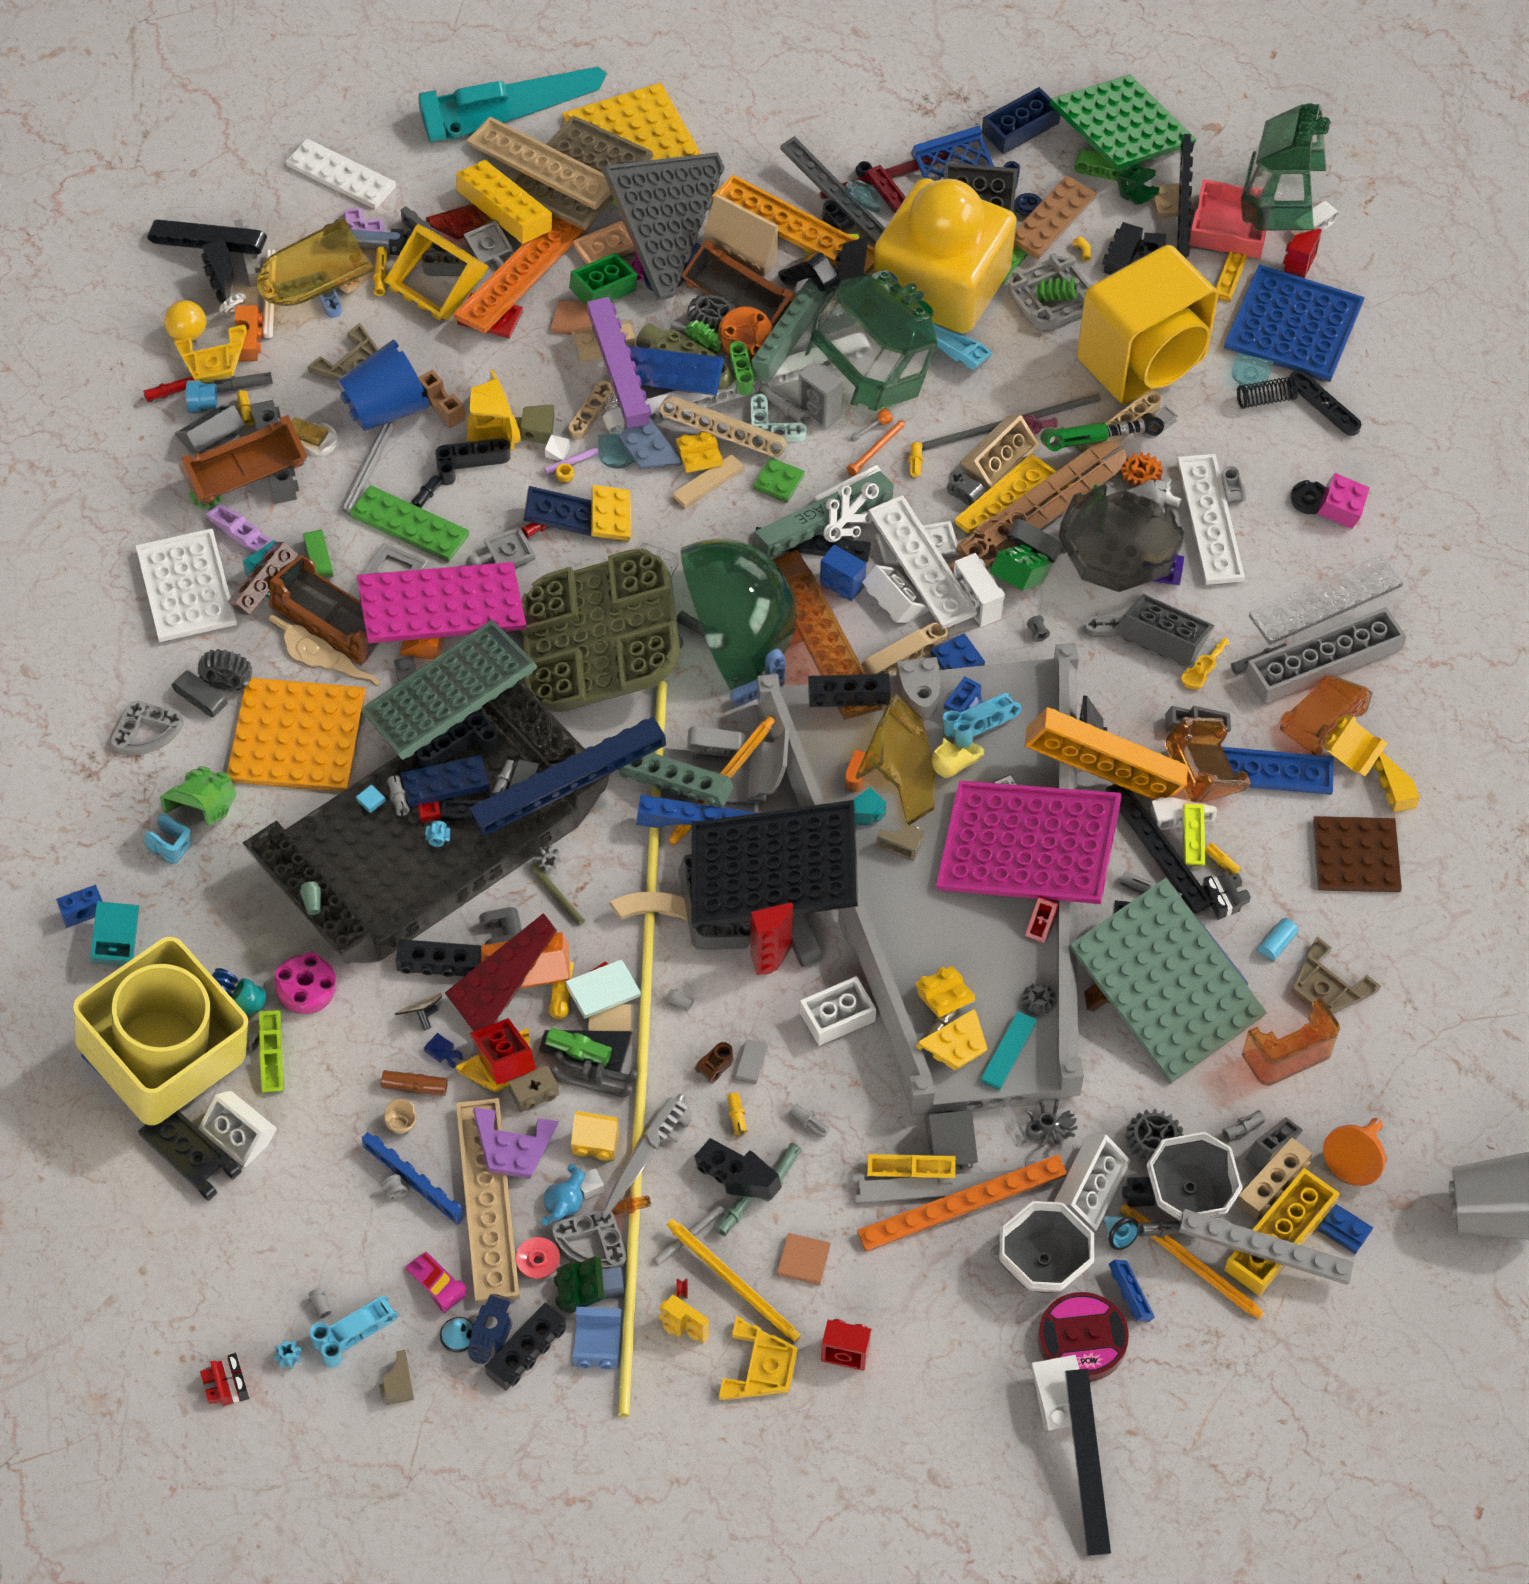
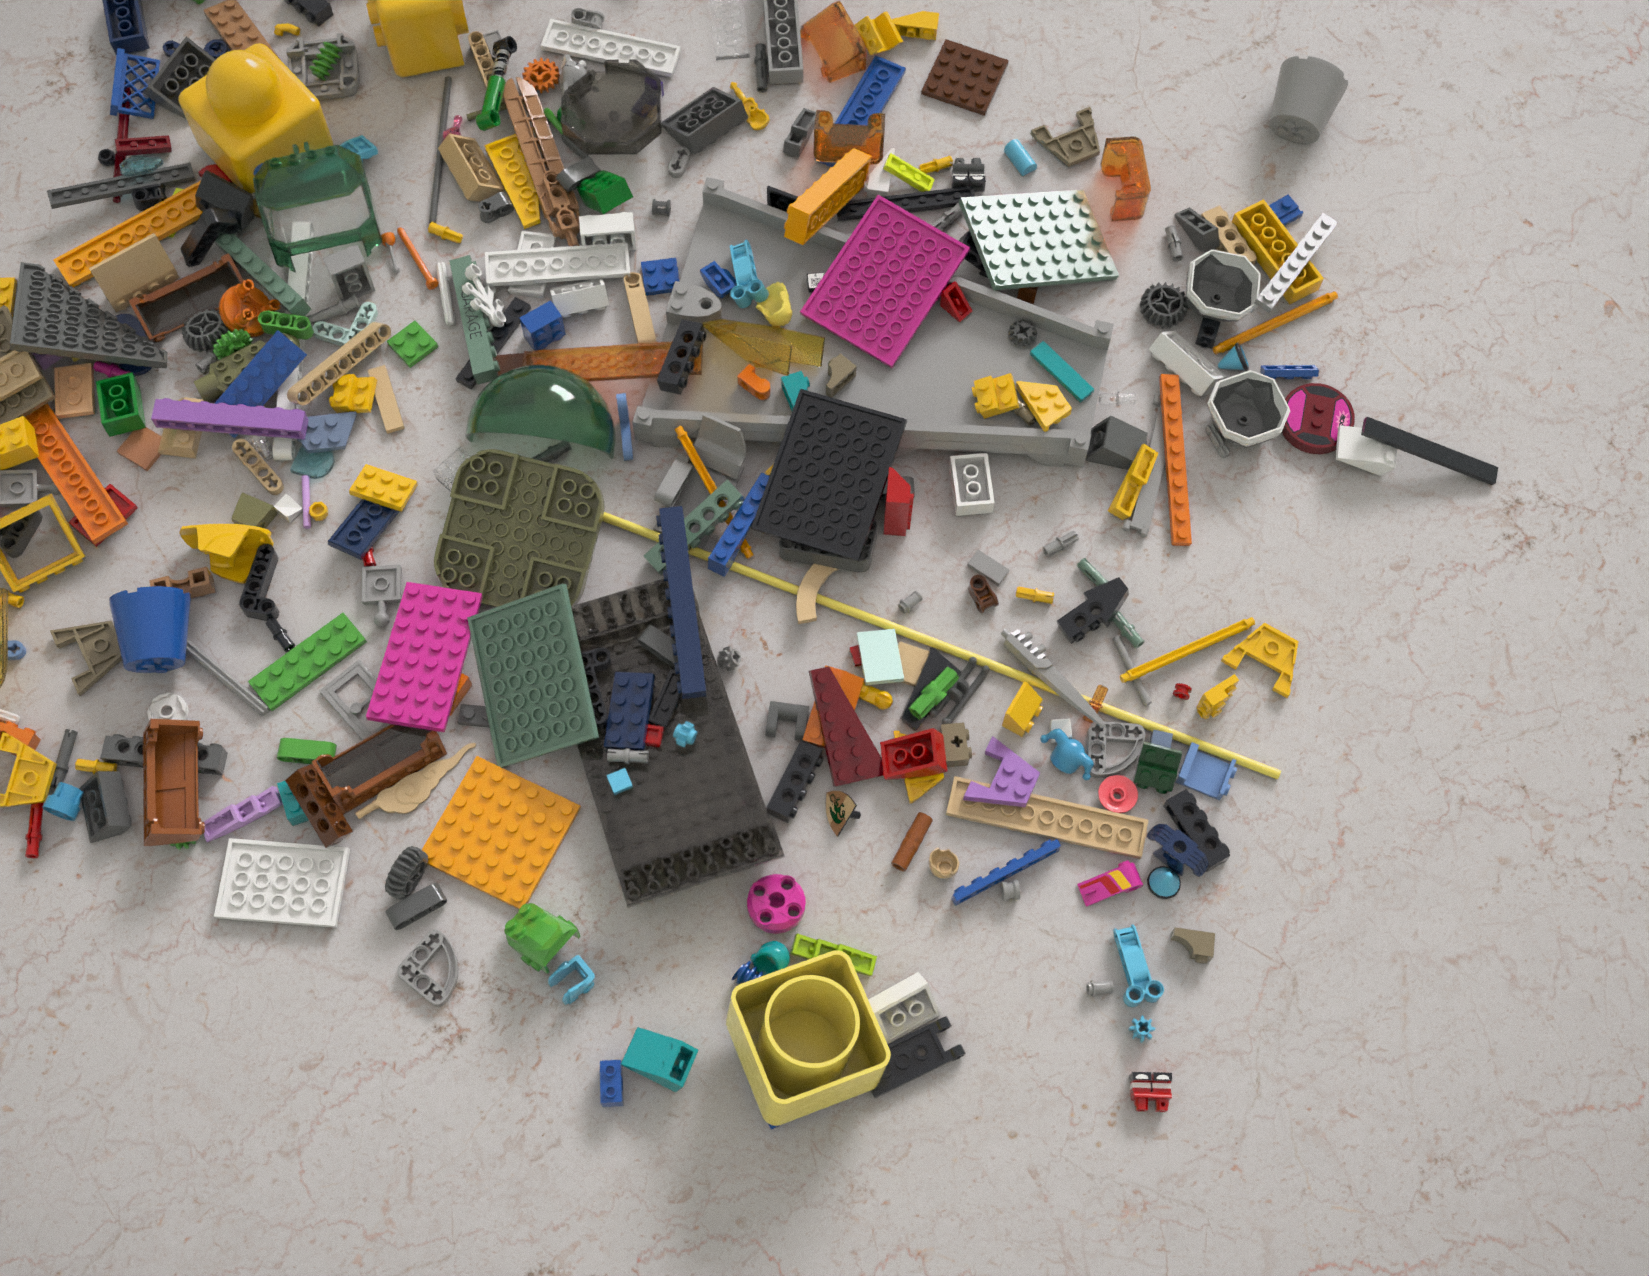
camera: 70 degrees left, 10 degrees up
(309, 432) = (162, 710): clear yellow tile -> none
(310, 894) = (719, 860): sand green cone -> none
(442, 1049) = (884, 809): clear blue plate -> none
(505, 778) = (650, 661): light grey pin -> none
(557, 894) = (765, 664): olive bar -> none
(804, 1258) = (1183, 591): nougat tile -> none
(846, 1344) = (1276, 583): red brick -> none
(1047, 1124) = (1127, 373): dark grey animal -> none
(1147, 1229) = (1248, 329): dark grey pin -> none
(1355, 1153) = (1233, 175): orange piece -> none

